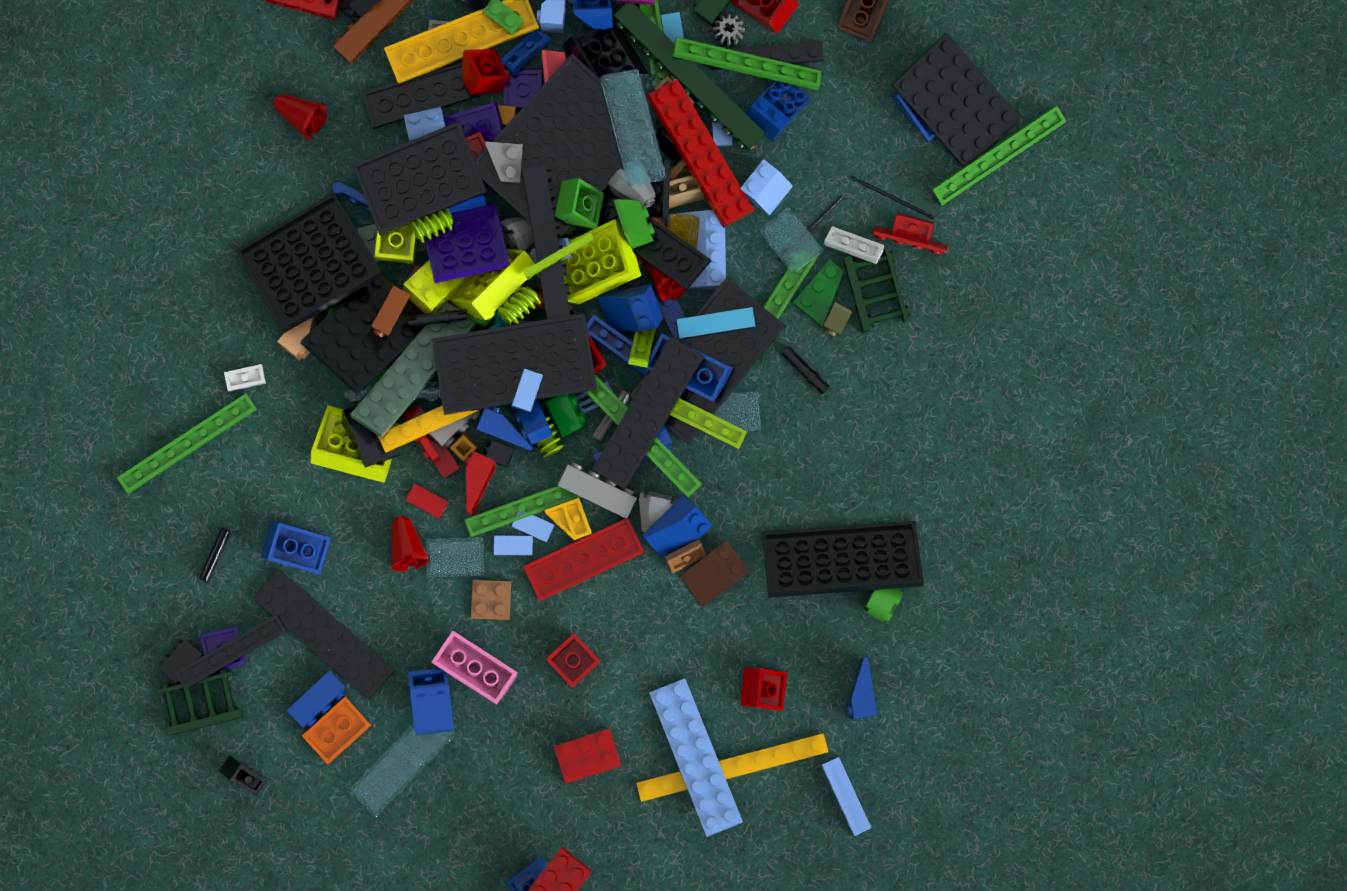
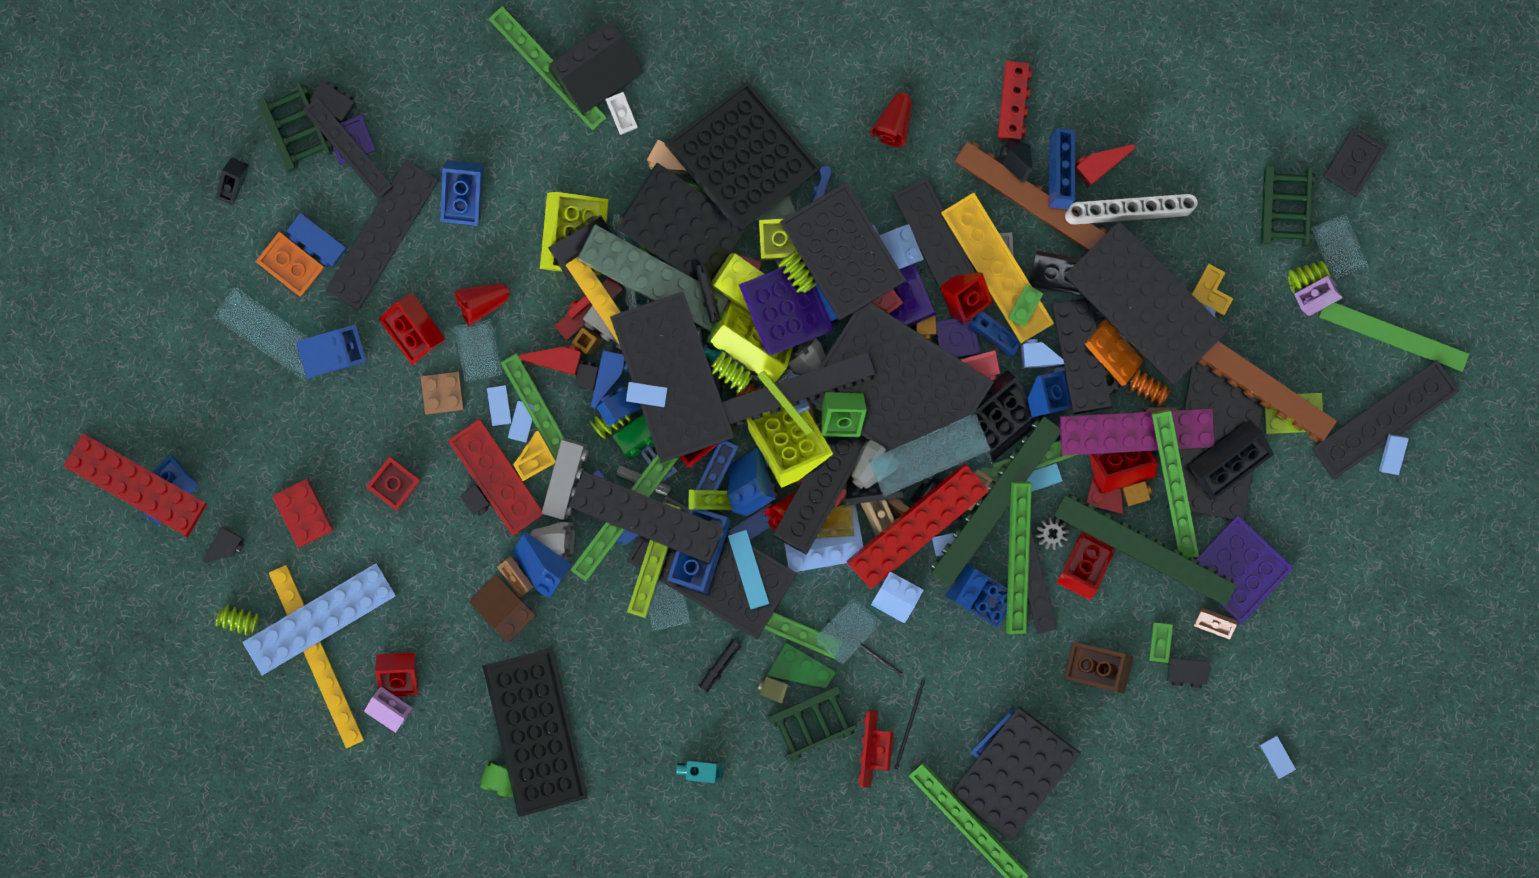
camera: 85 degrees right, 5 degrees up
(195, 394) = (596, 68): none -> black slope
(215, 554) = (442, 115): black axle -> none
(390, 312) = (704, 245): dark orange slope -> none
(422, 619) = (412, 328): none -> red slope
(427, 501) = (529, 313): red tile -> none
(474, 668) = (369, 388): bright pink slope -> none
(506, 160) = (875, 334): light grey wing -> none
(603, 583) = (475, 501): none -> black brick
(607, 841) = (224, 546): none -> black slope
(634, 222) = (832, 472): bright green slope -> none
(683, 839) = (237, 620): none -> lime piece
(796, 702) = (388, 709): none -> lavender brick
(846, 796) = (305, 772): light blue fence -> none
(854, 245) = (853, 694): white plate -> none
(862, 698) = (402, 772): blue slope -> none
(906, 395) = (708, 771): none -> teal torso

